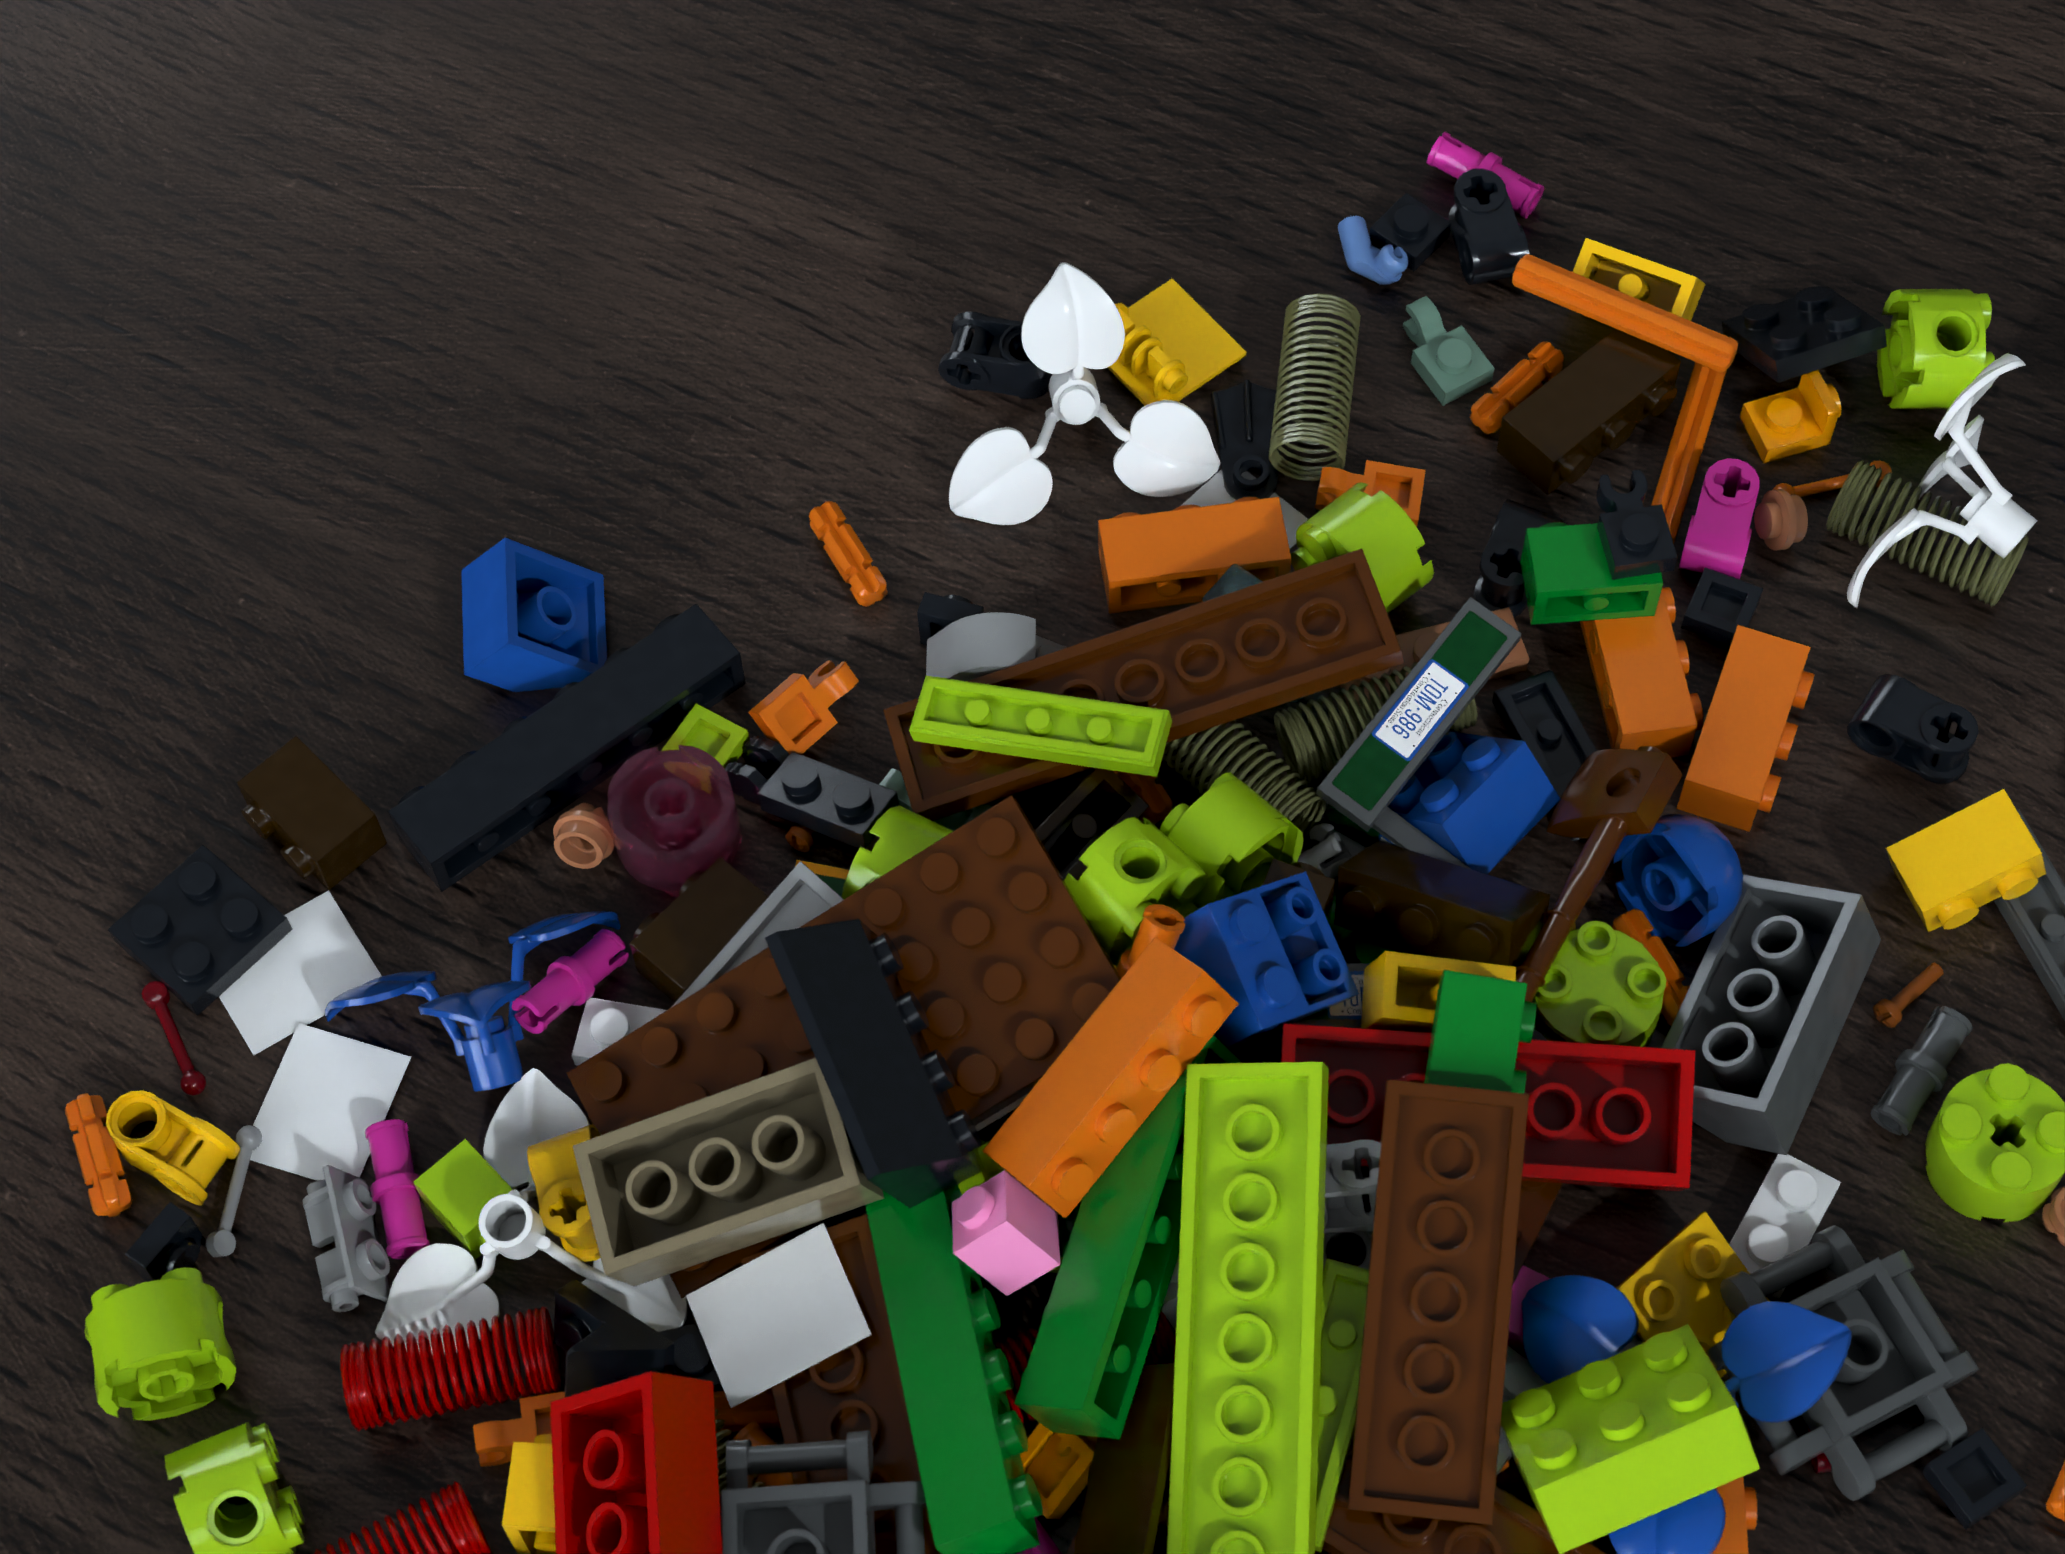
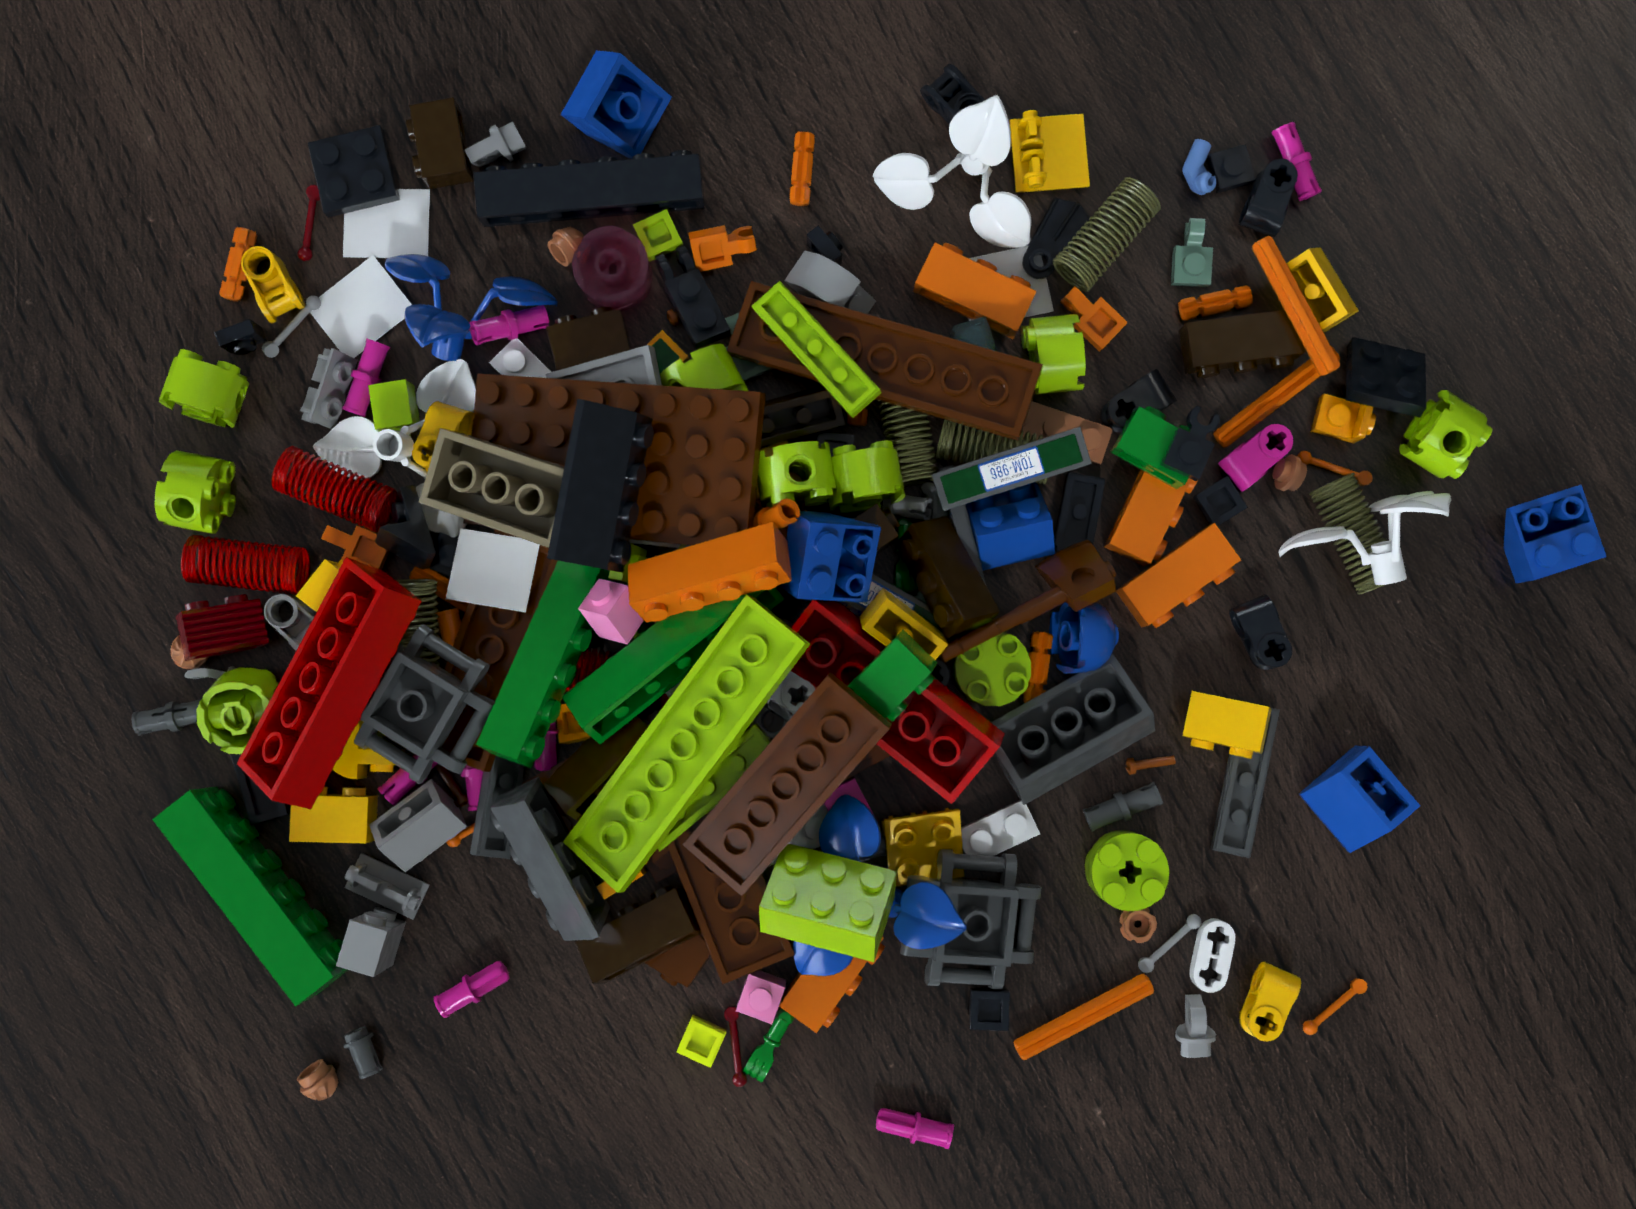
camera: 30 degrees right, 25 degrees up
(399, 761) = (502, 141): none -> light grey piece

